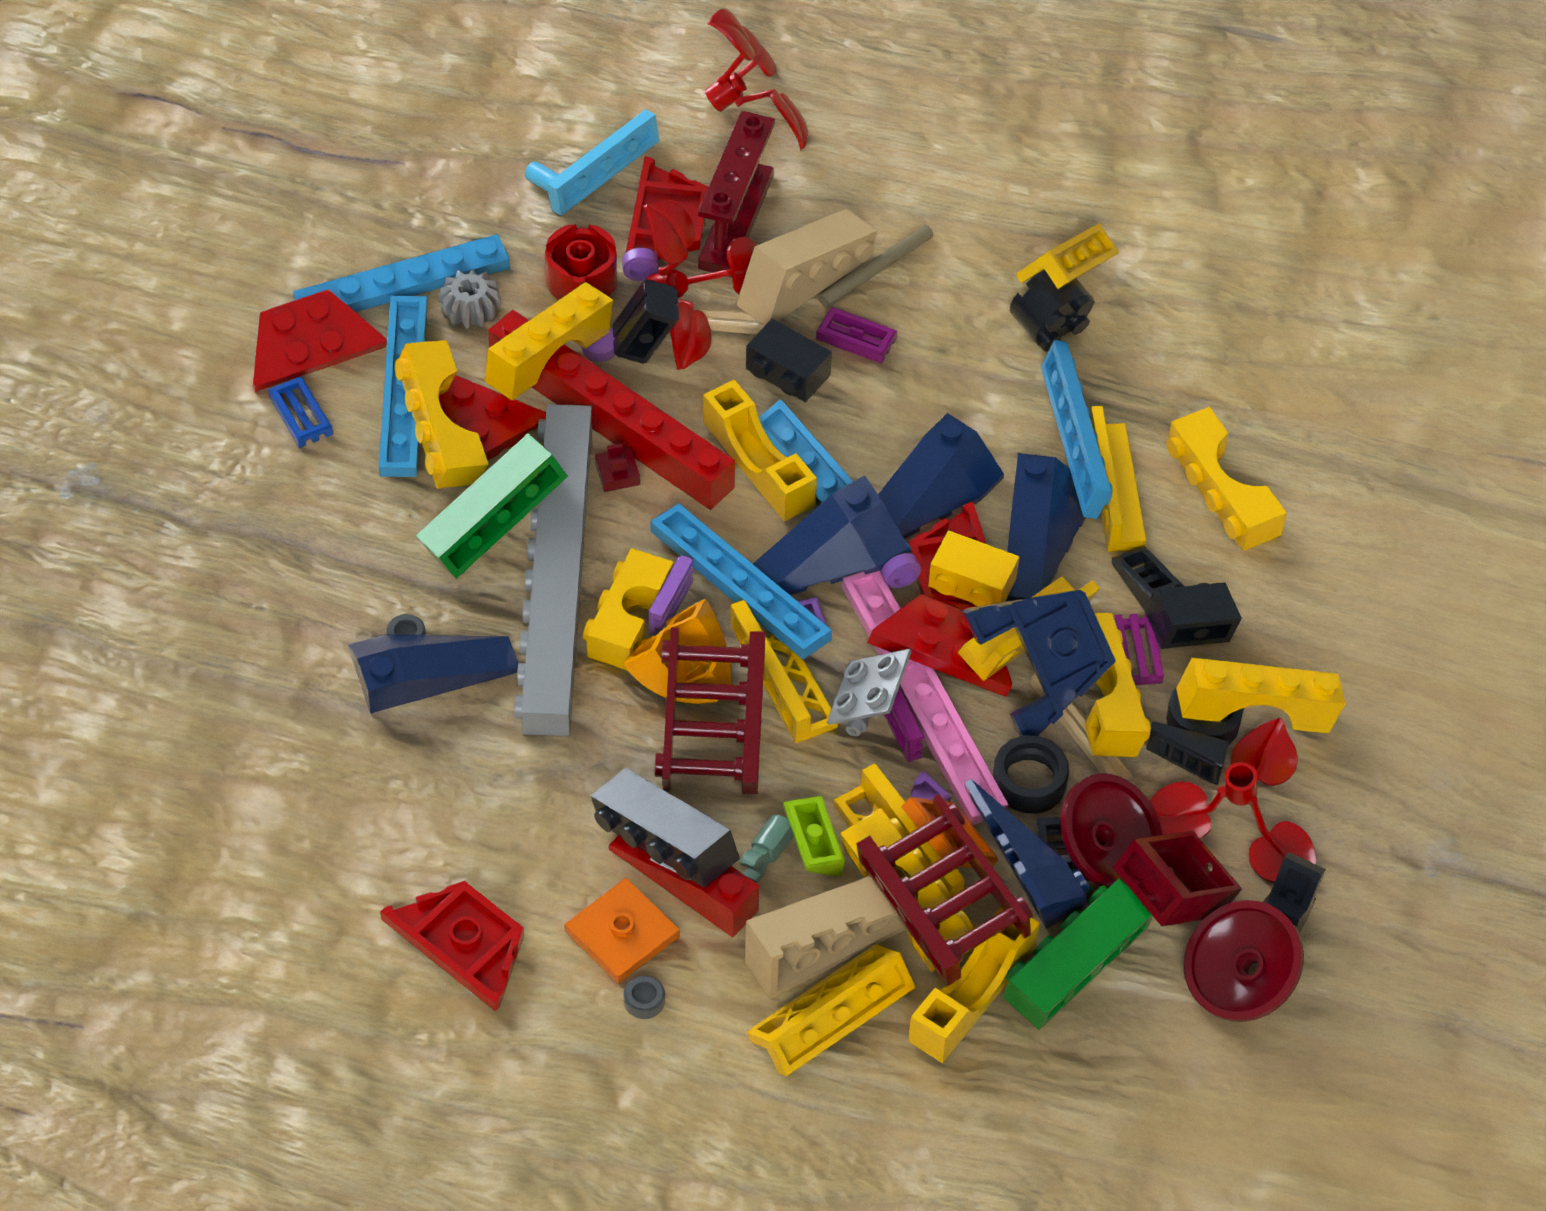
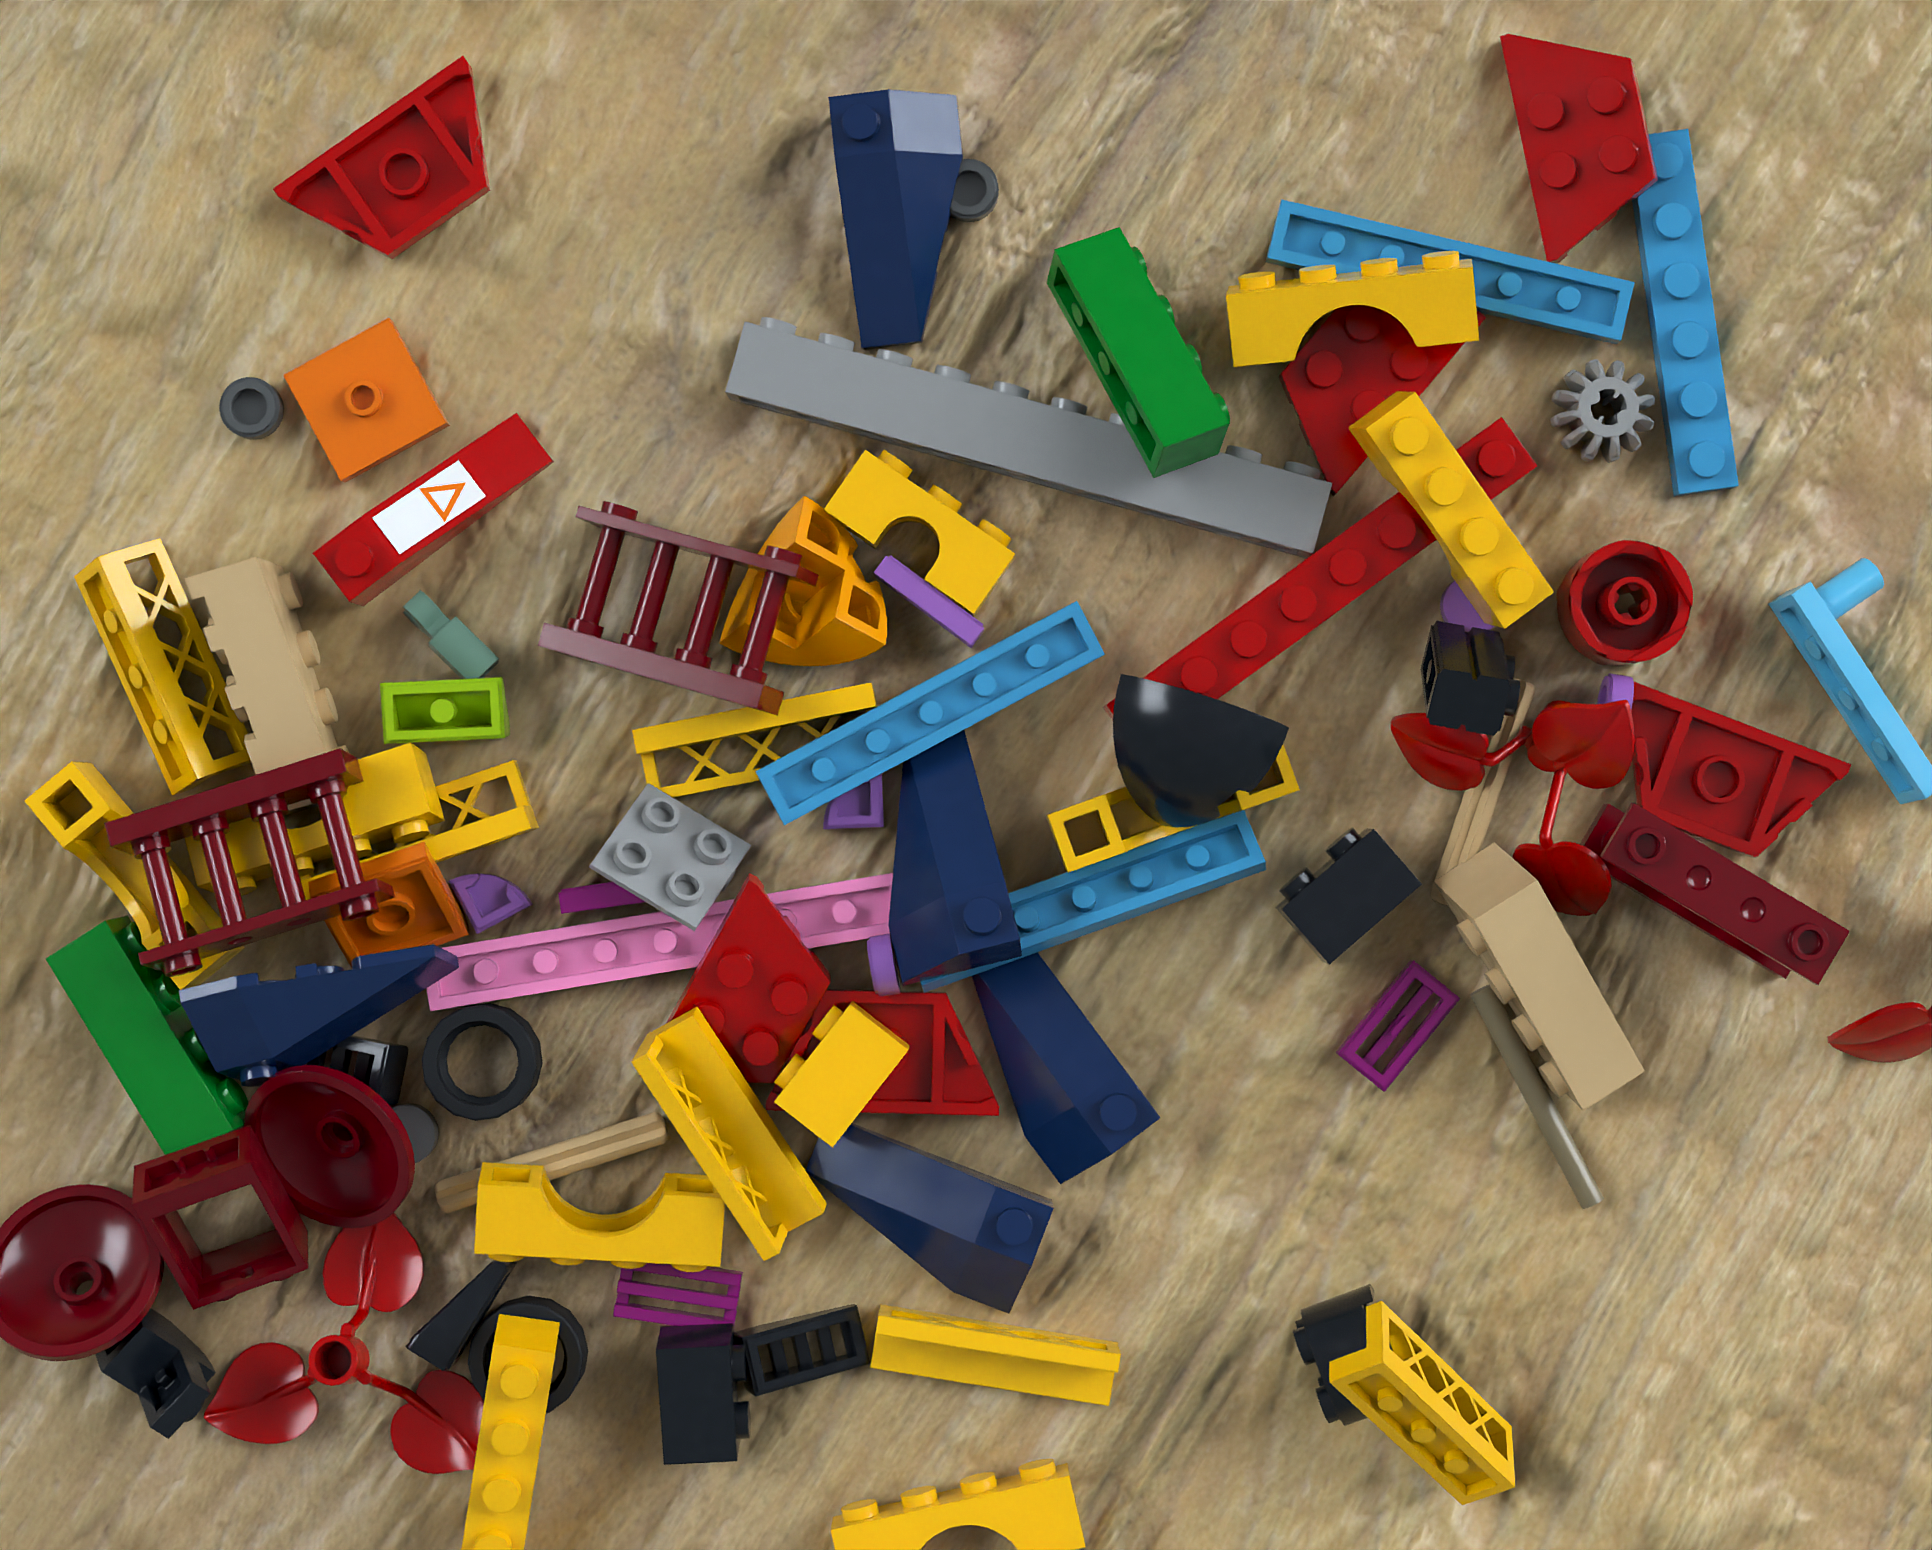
camera: 105 degrees right, 35 degrees up
(310, 432) = (1391, 116): blue tile -> none
(617, 468) = (1207, 577): dark red tile -> none
(664, 827) = (481, 486): brick -> none
(727, 424) = (1188, 750): none -> black brick
(1062, 646) = (641, 1154): dark blue wing -> none
(1076, 430) = (1092, 1317): dark azure plate -> none

